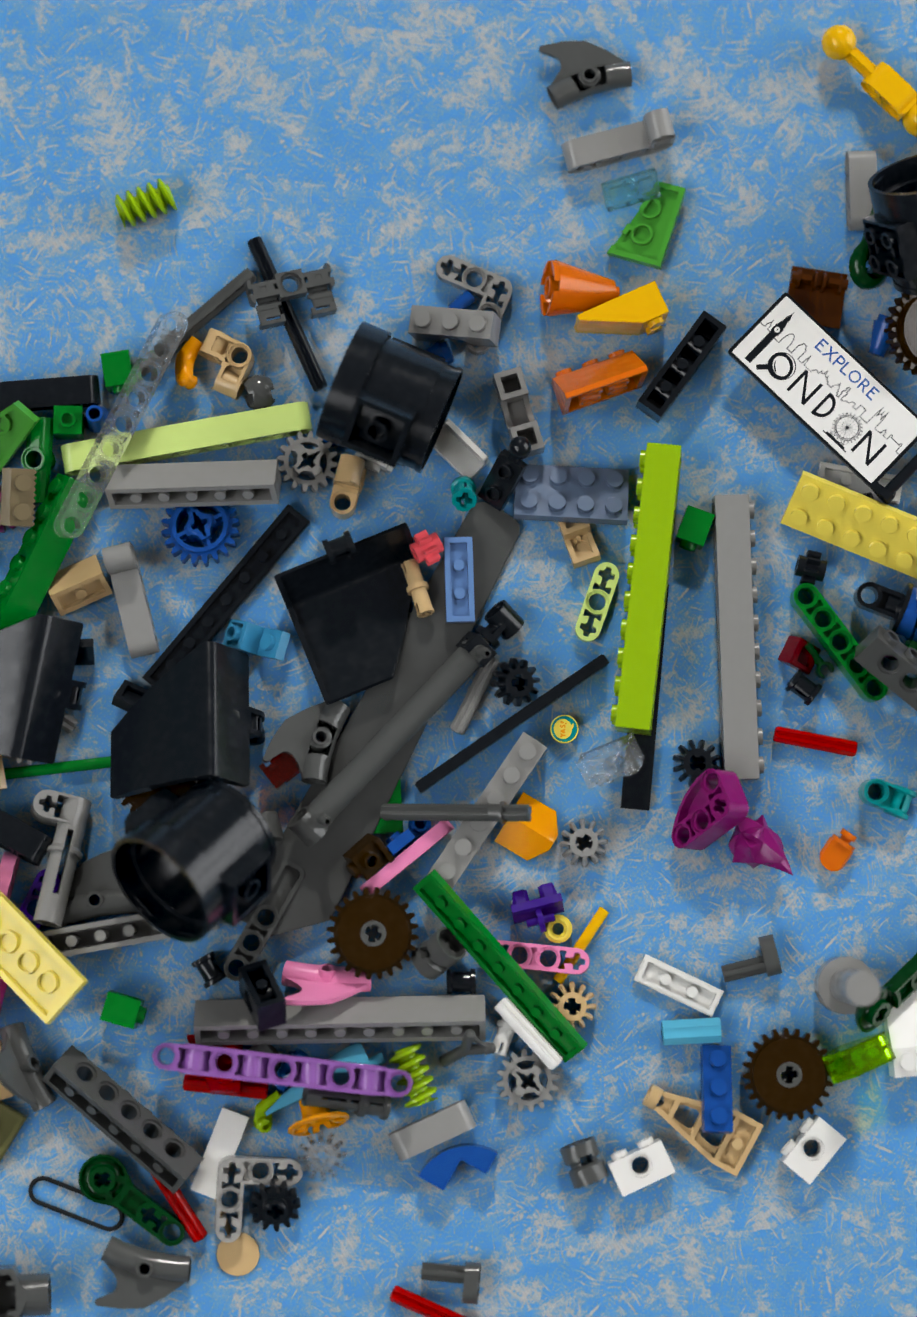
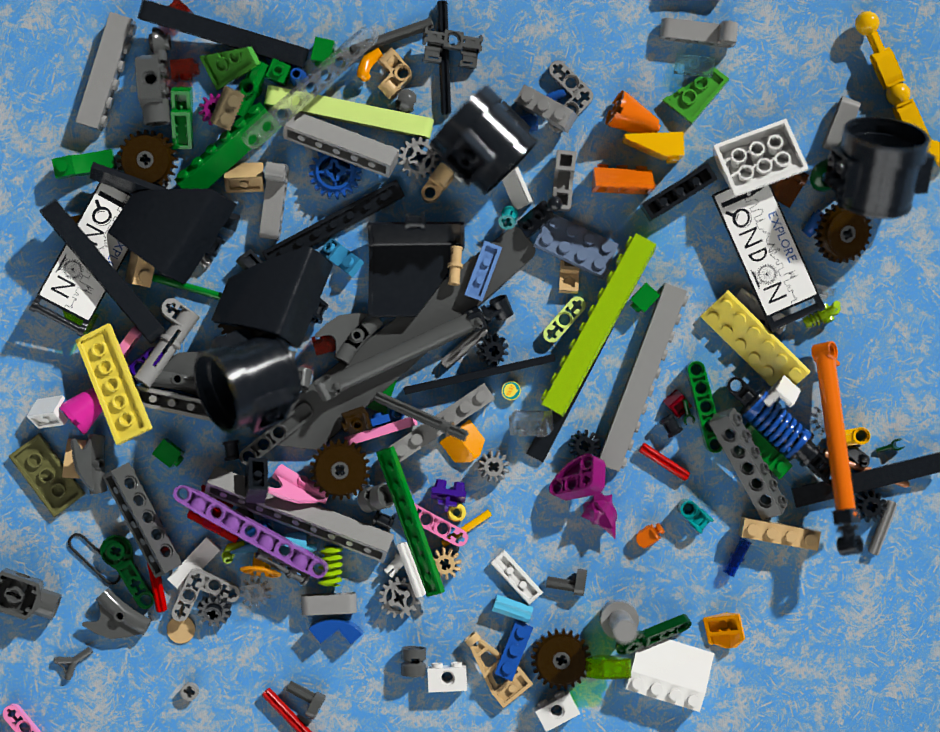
camera: 25 degrees right, 5 degrees up
(426, 547) = (470, 243): coral gear -> none
(467, 1048) = (370, 562): dark grey piece -> none
(771, 276) = (759, 158): none -> white slope
(810, 567) = (706, 352): black gear -> none

